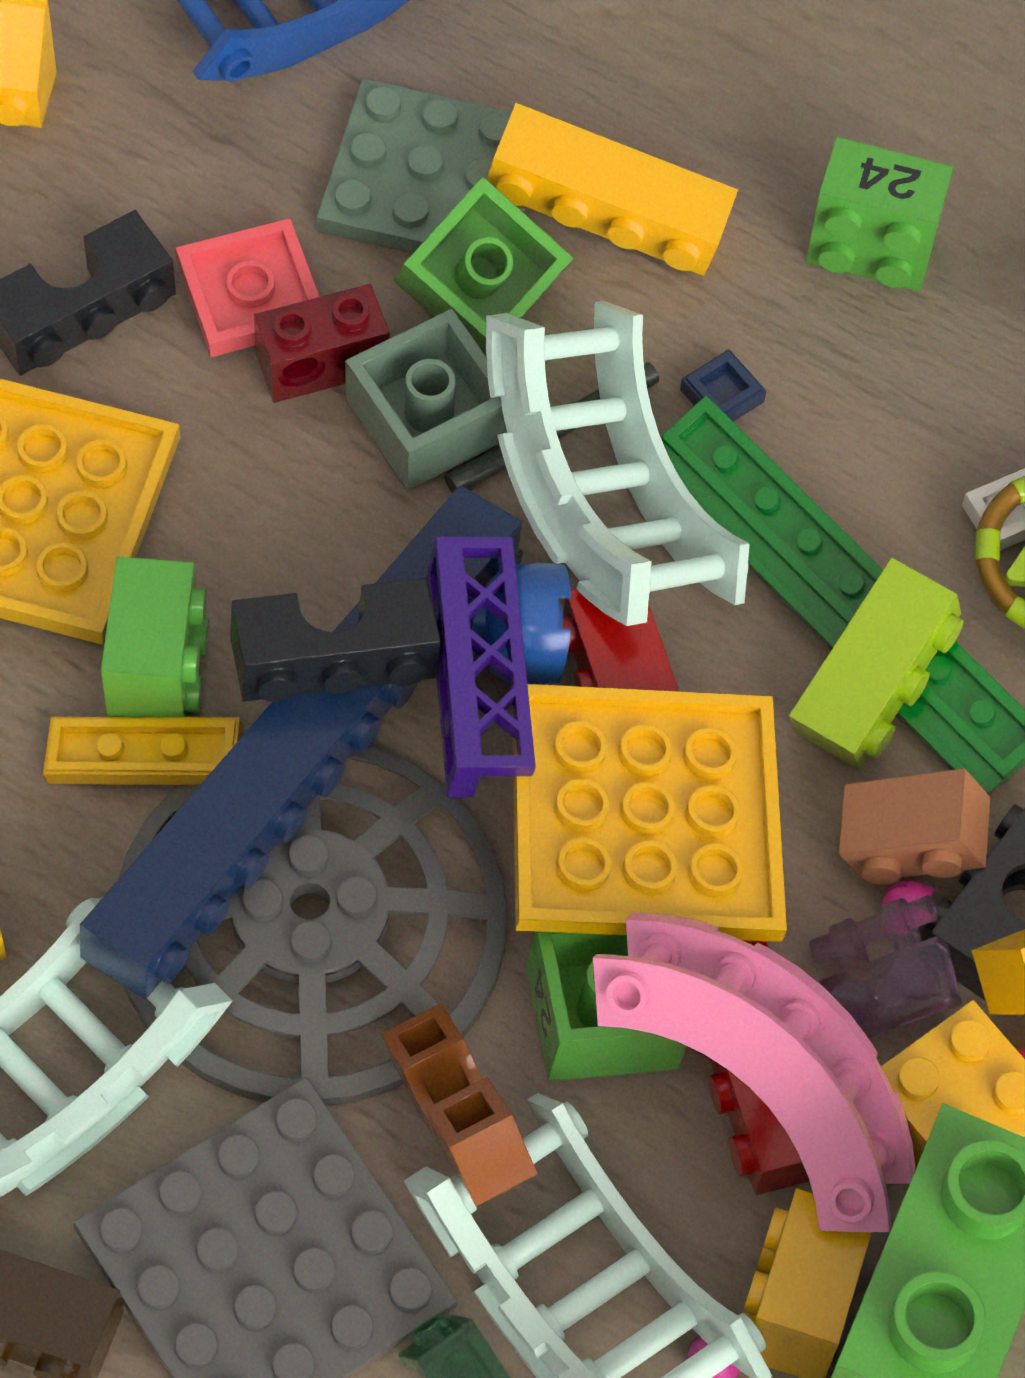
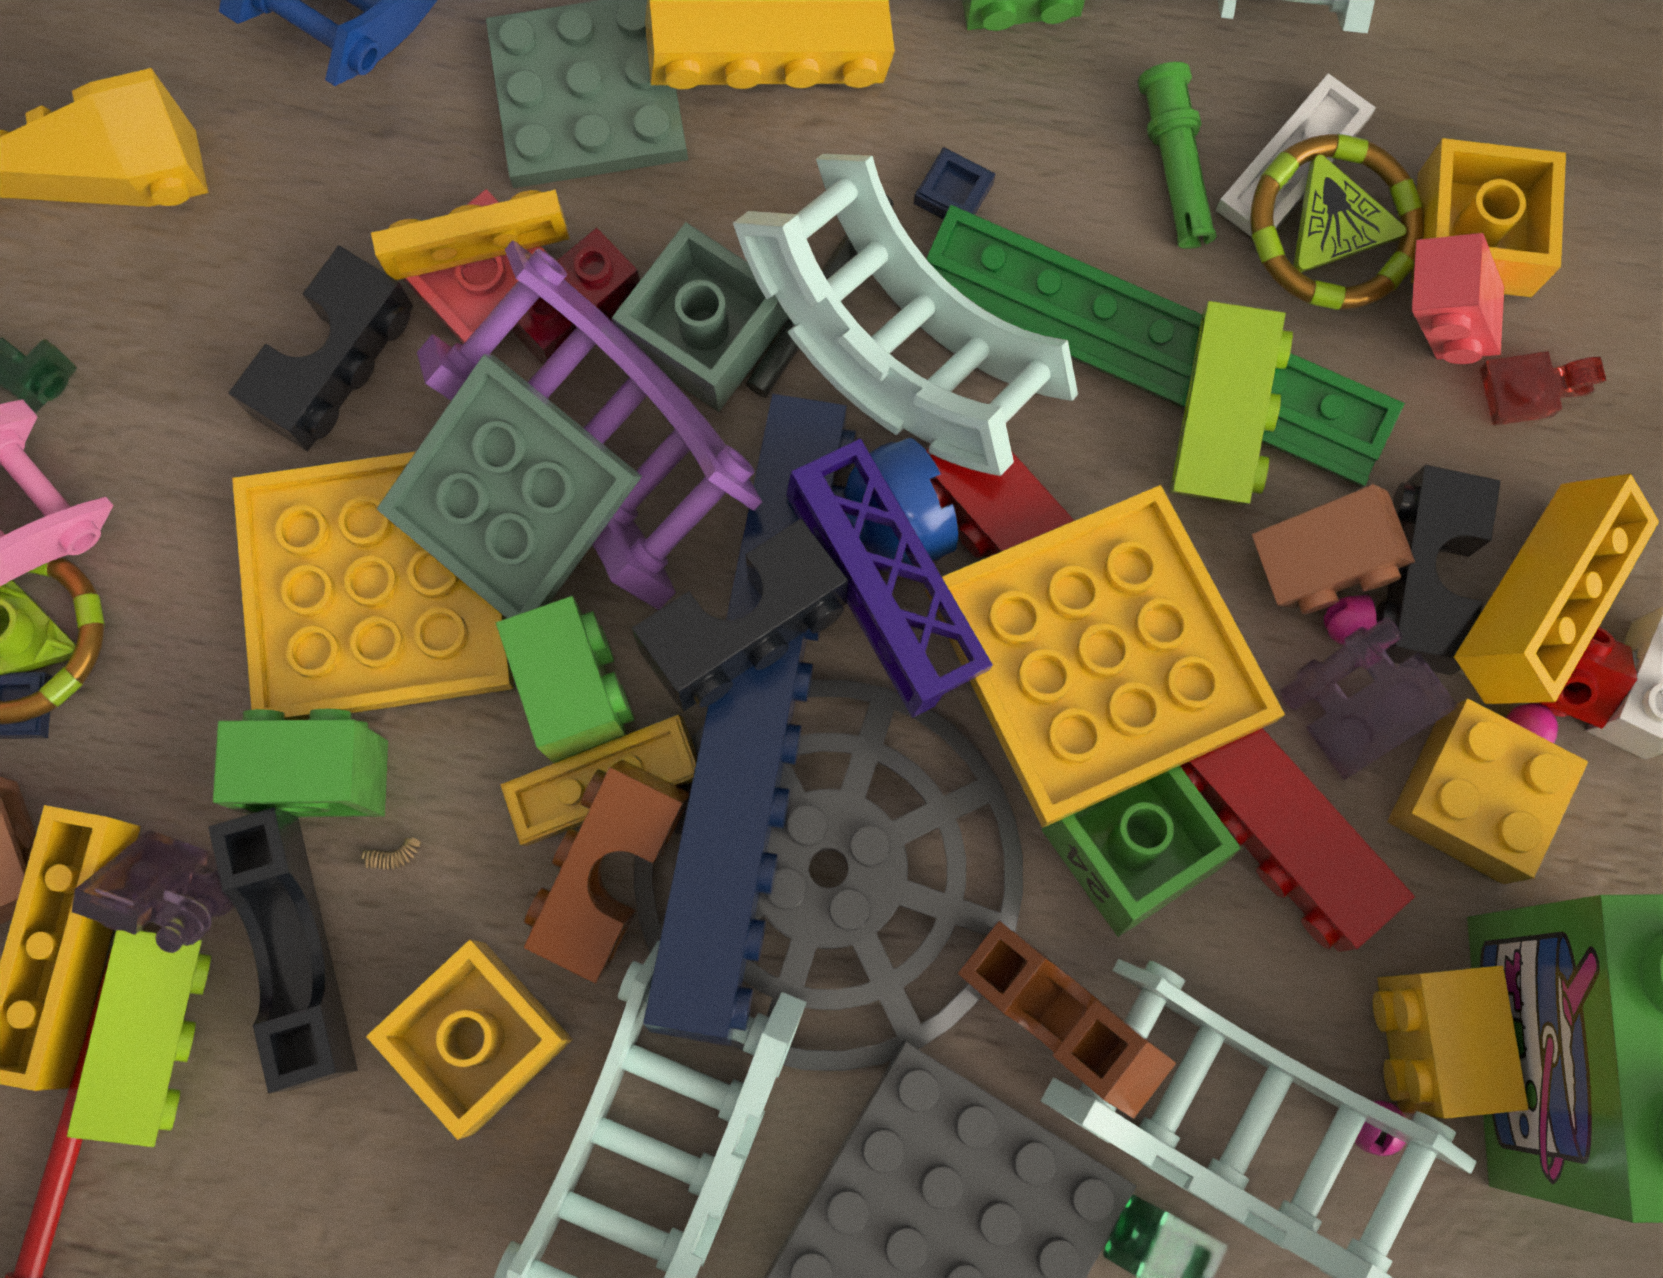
camera: 20 degrees left, 15 degrees up
(63, 843) = (578, 919): none -> dark orange arch
(182, 460) = (508, 490): none -> sand green plate
(245, 473) = (627, 555): none -> medium lavender fence
(257, 246) = (470, 234): none -> yellow plate
(482, 262) = (692, 163): bright green brick -> none
(782, 1041) = (1397, 874): bright pink fence -> none
(954, 418) = (1174, 130): none -> bright green pin

